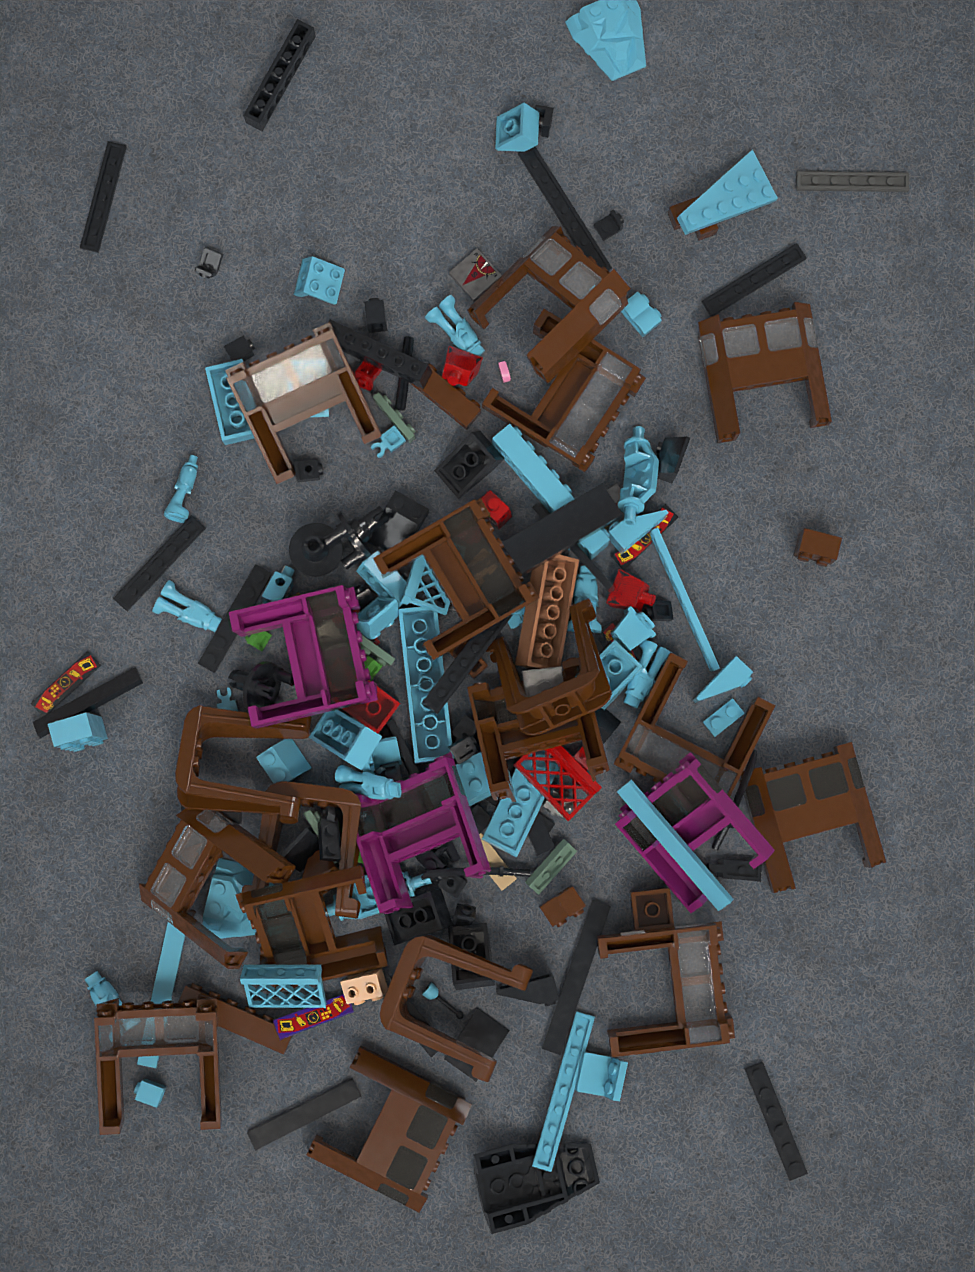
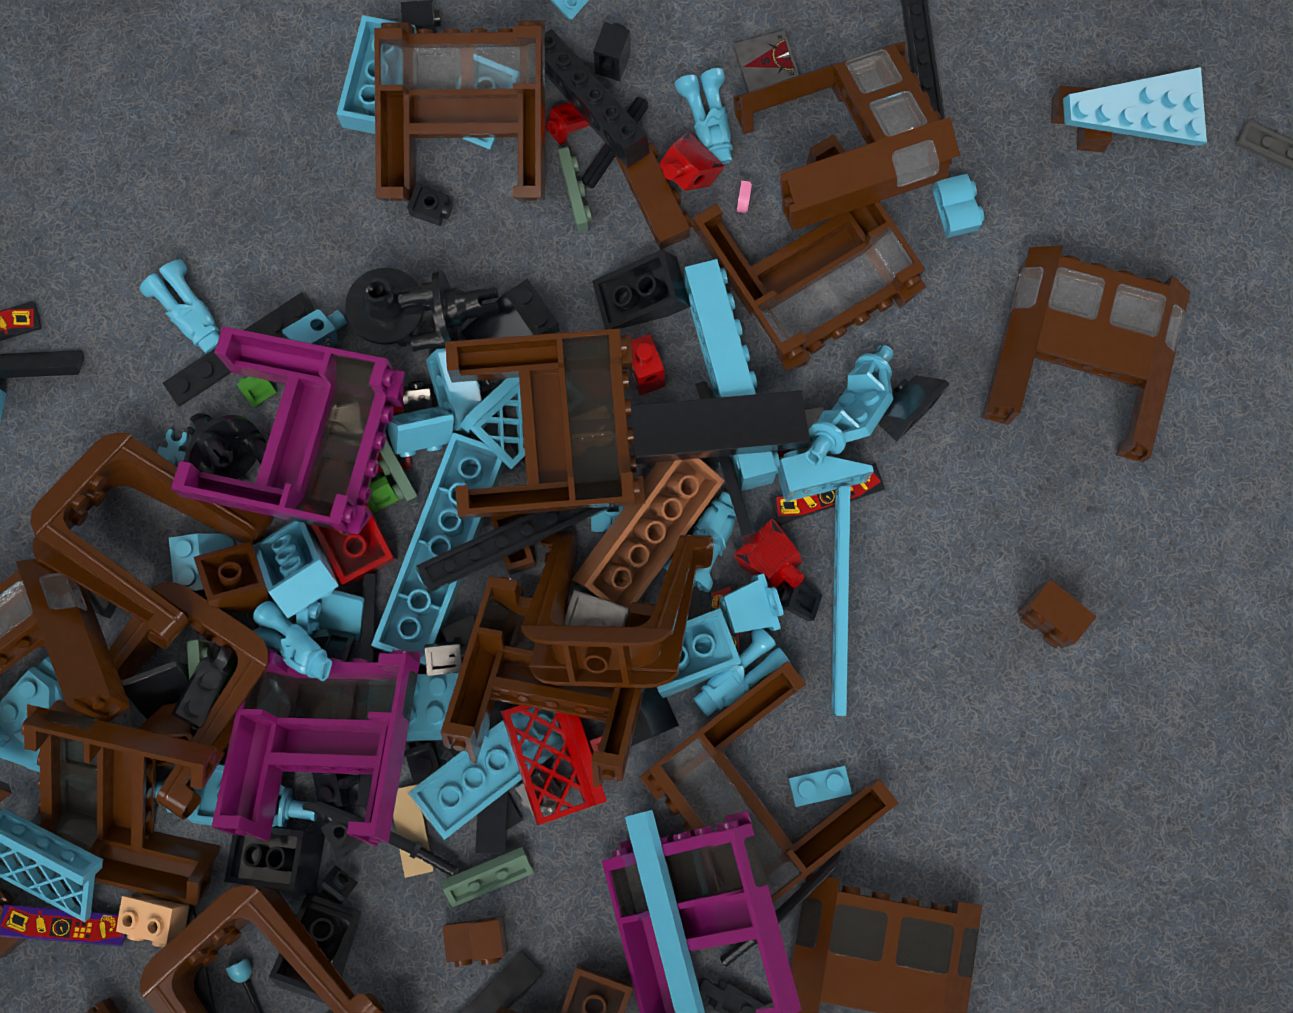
camera: 25 degrees right, 5 degrees down
(159, 563) = (182, 235): black tile -> none
(184, 484) = (264, 149): medium azure piece -> none
(310, 762) = (232, 578): none -> reddish brown slope
(390, 440) = (555, 216): medium azure plate -> none
(609, 225) = (969, 78): black bracket -> none
(730, 677) = (853, 736): medium azure slope -> none
(754, 280) = (1129, 230): black tile -> none

